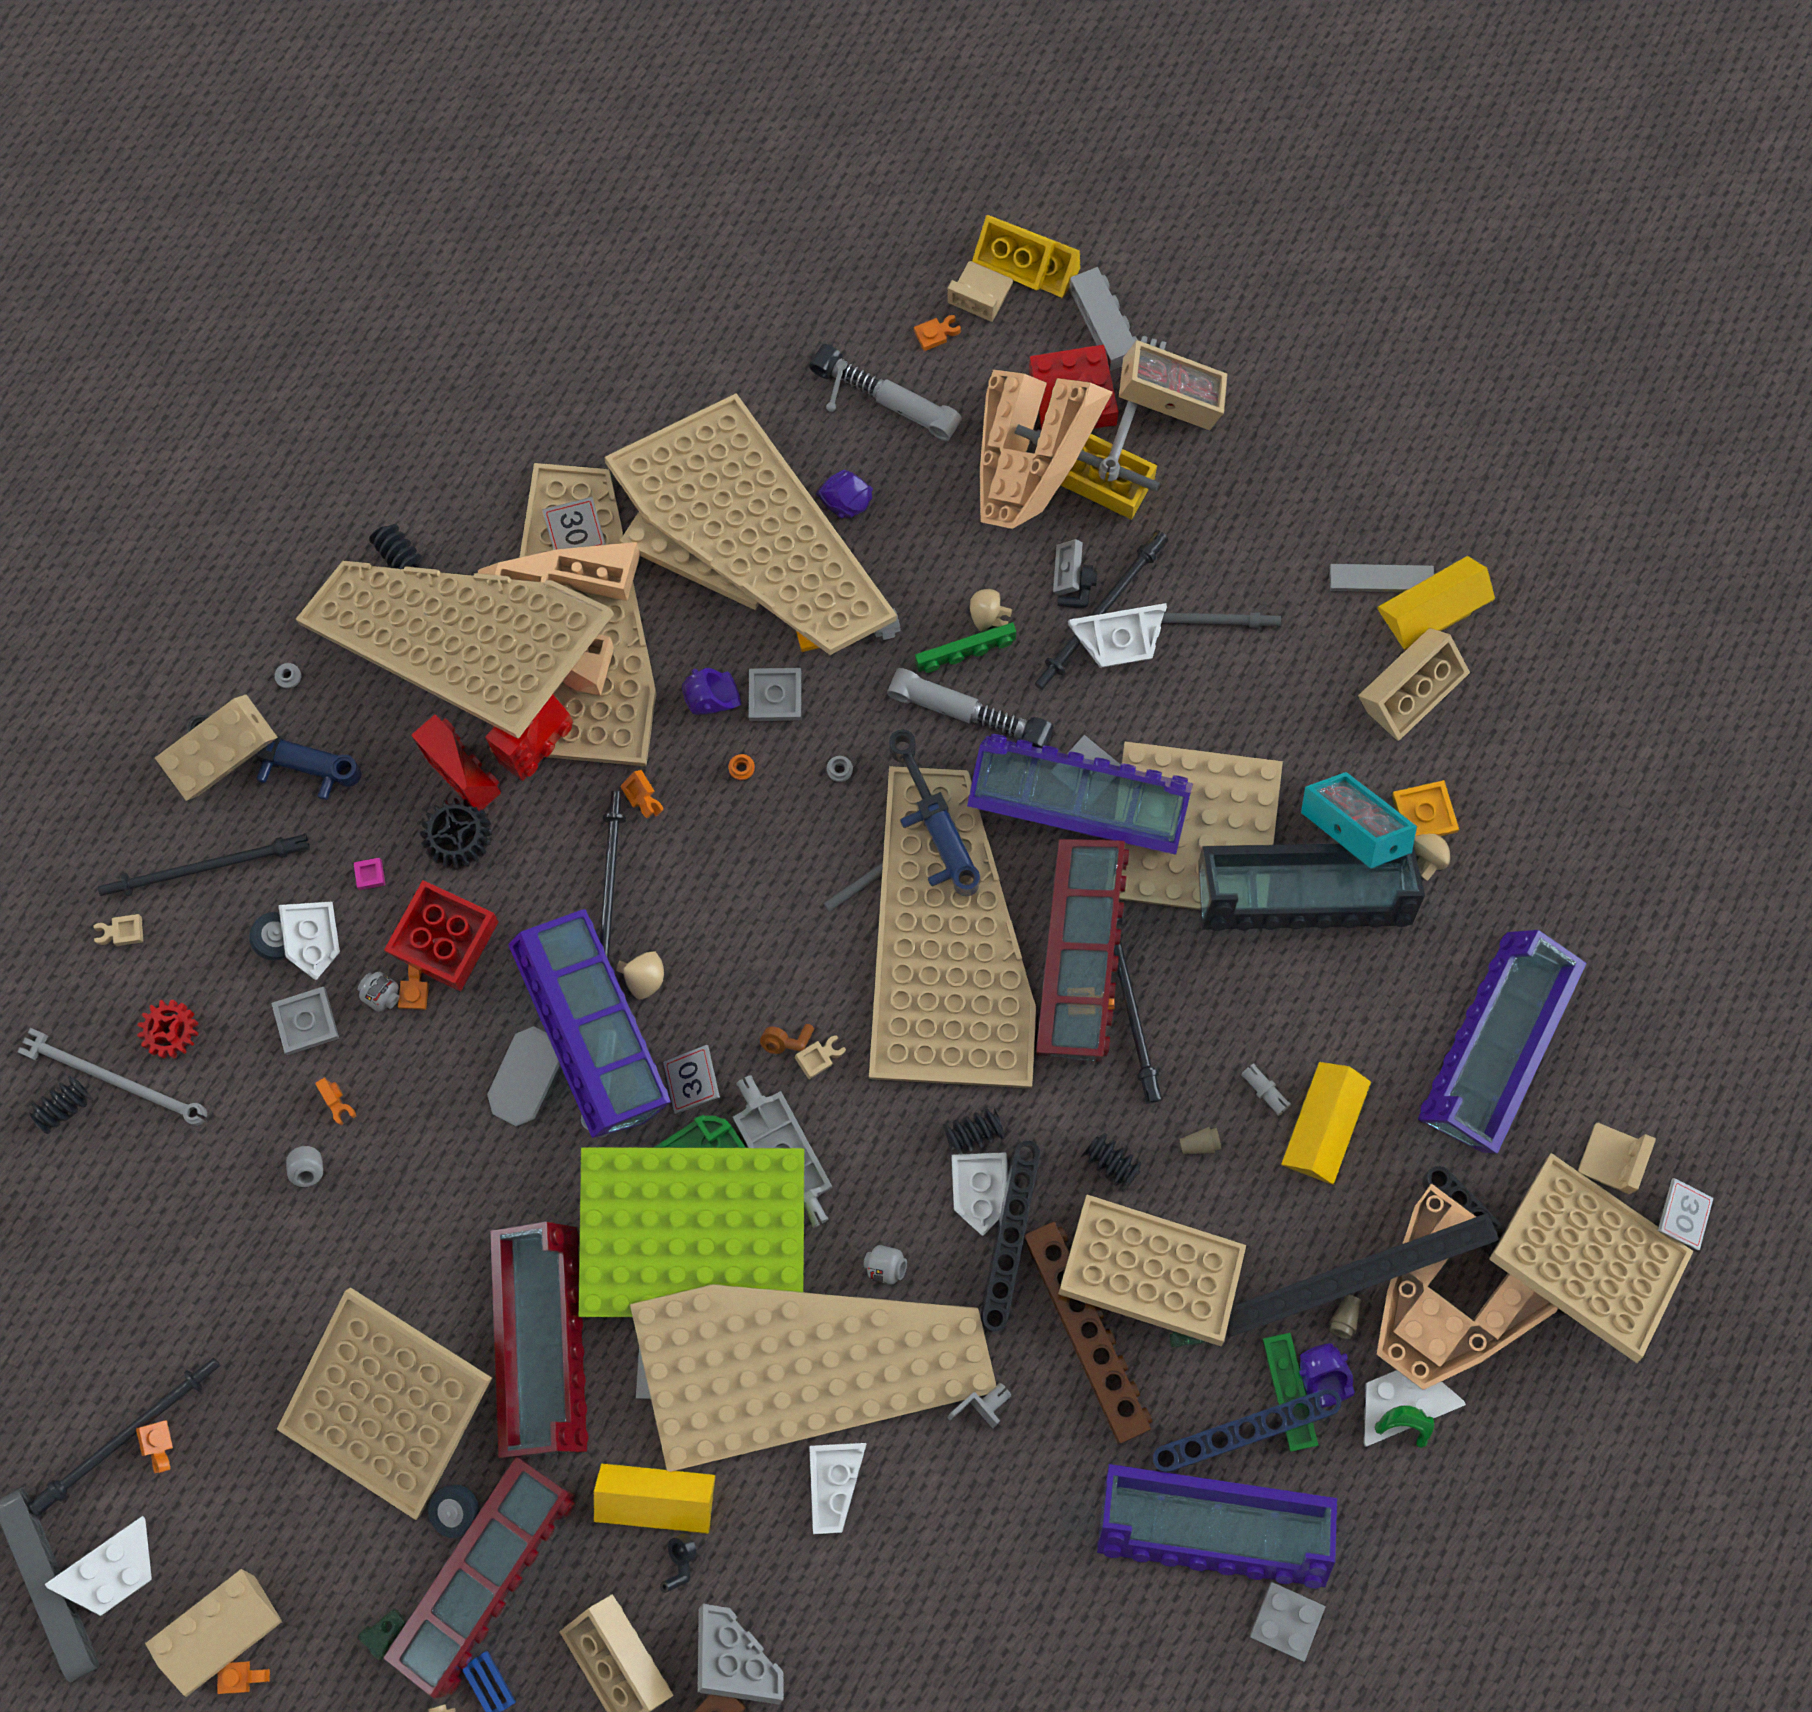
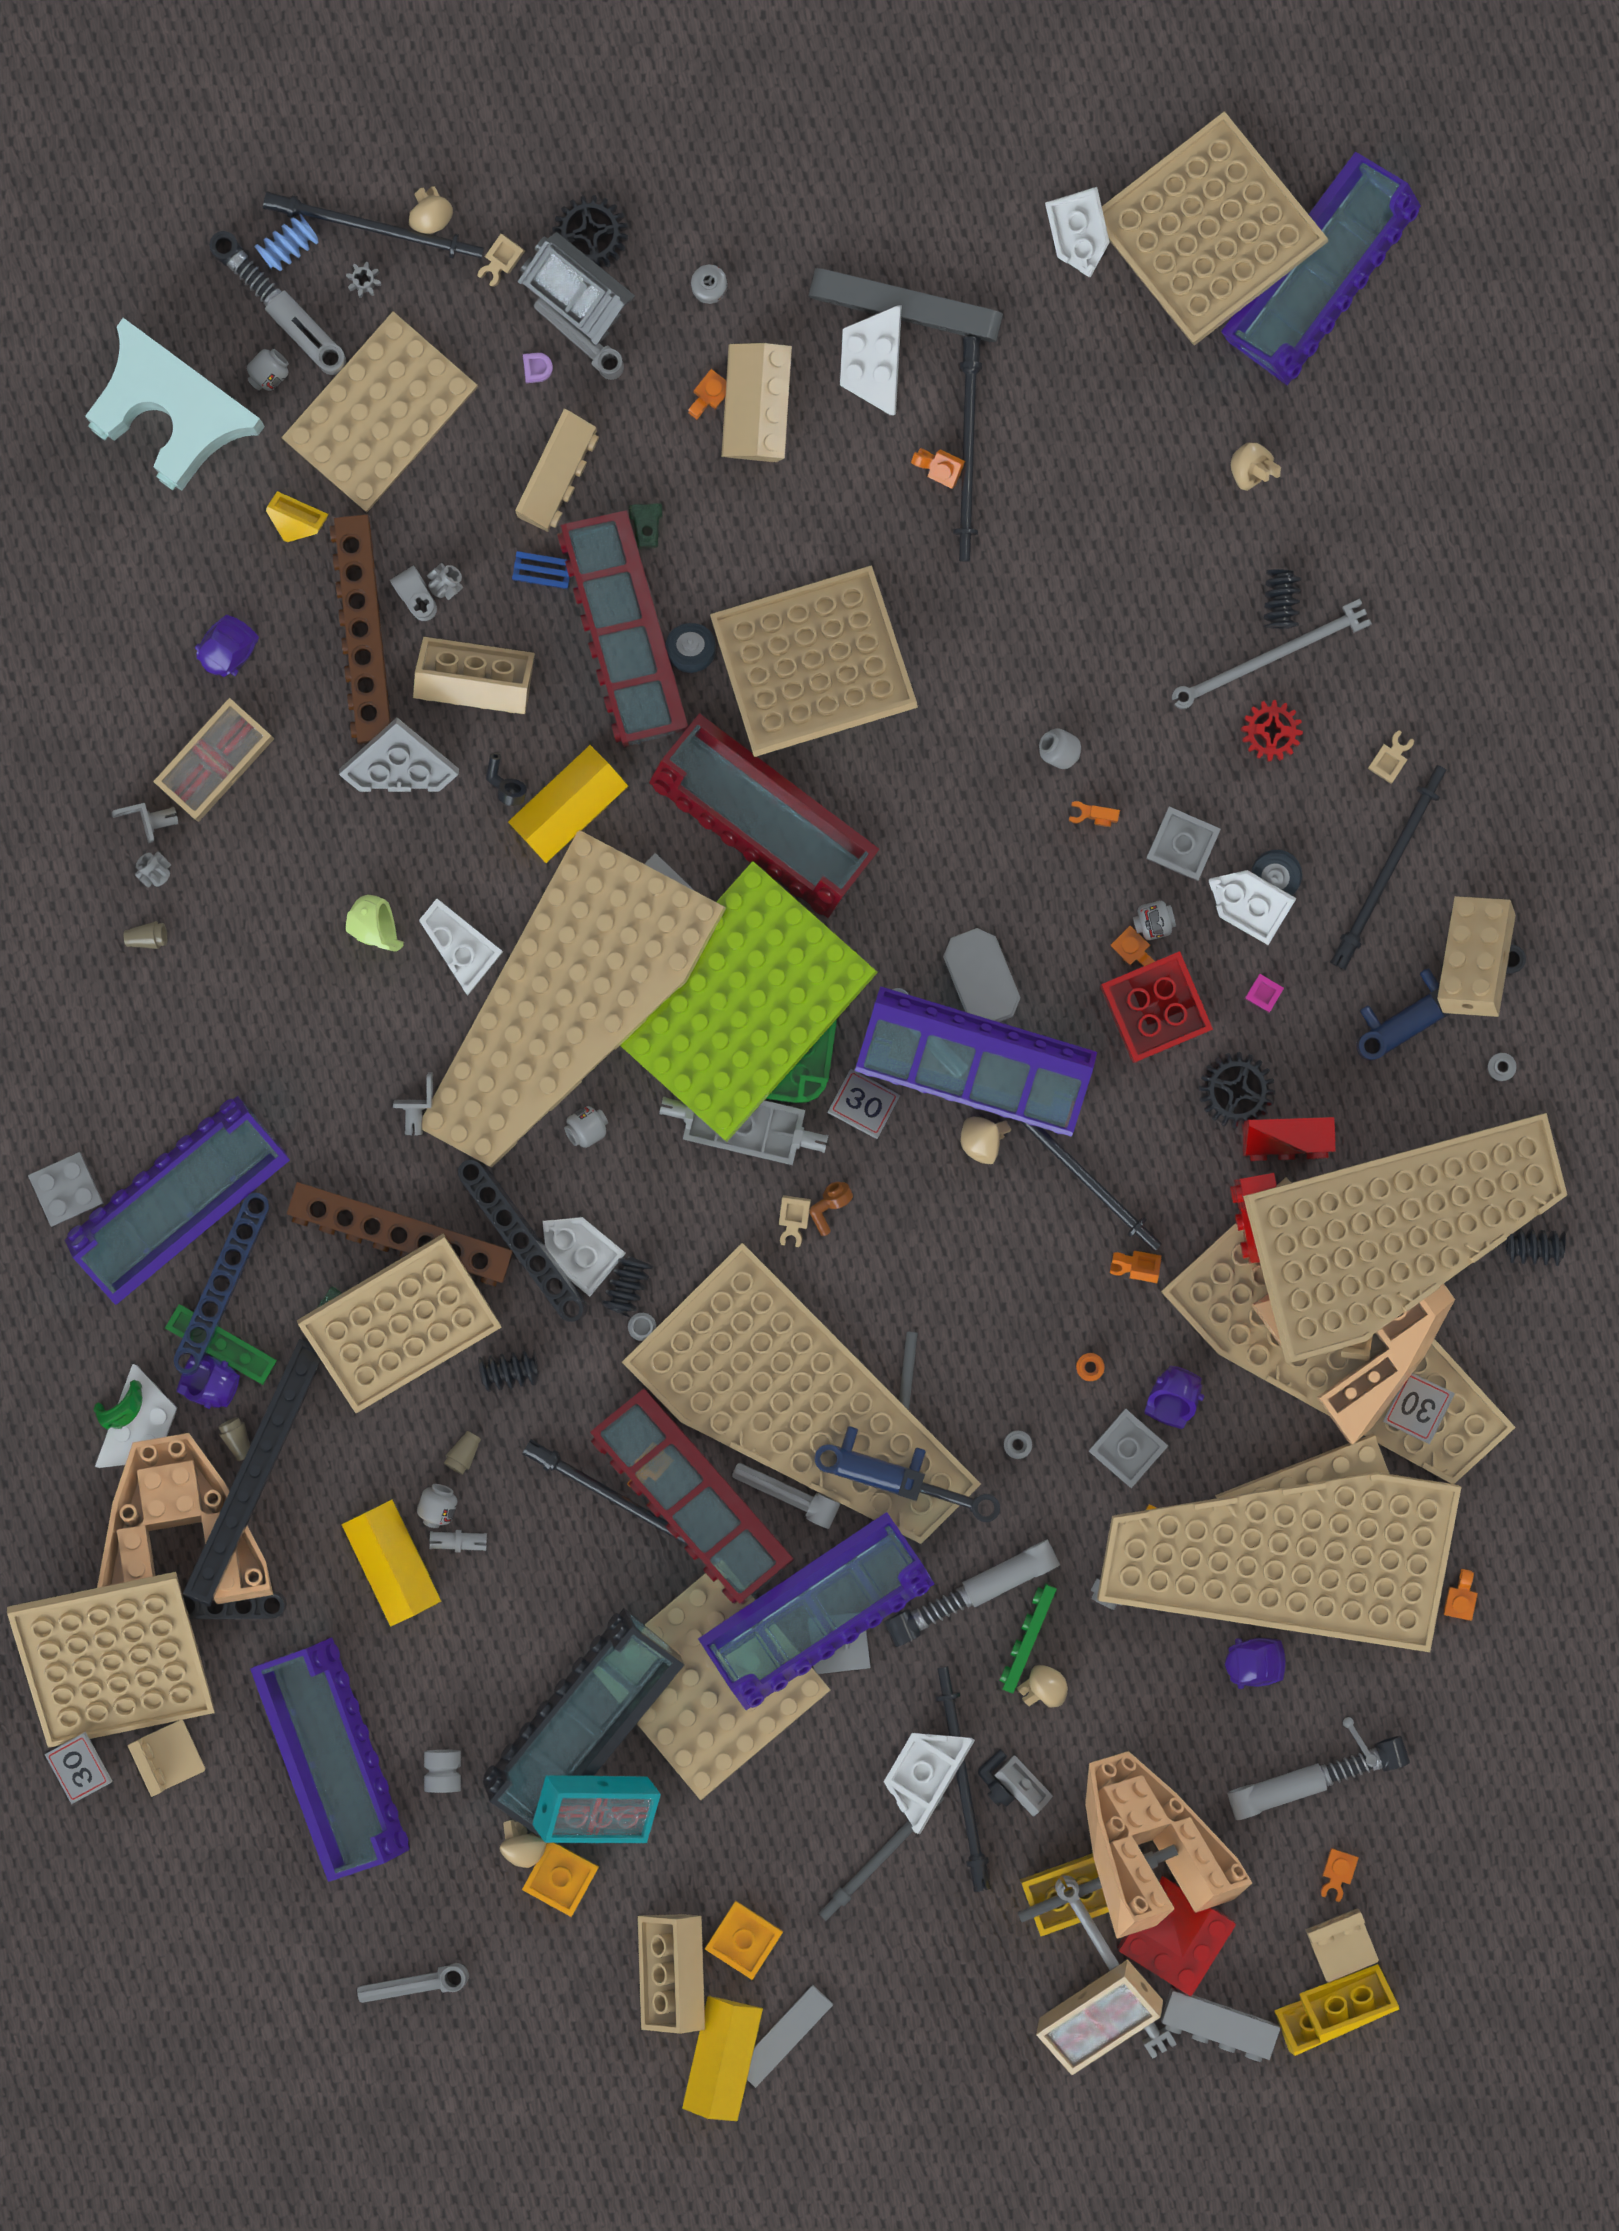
camera: 125 degrees right, 15 degrees up
(682, 405) = (1460, 1600): none -> orange plate
(875, 1565) = (373, 923): none -> yellowish green helmet
(993, 1096) = (641, 1326): none -> light grey plate
(1008, 861) = (819, 1508): none -> light grey axle
(1255, 1126) = (437, 1505): none -> light grey head
(1345, 656) = (743, 1940): none -> light orange plate
(1438, 951) = (442, 1771): none -> light grey wheel
(1591, 843) = (414, 1984): none -> light grey axle

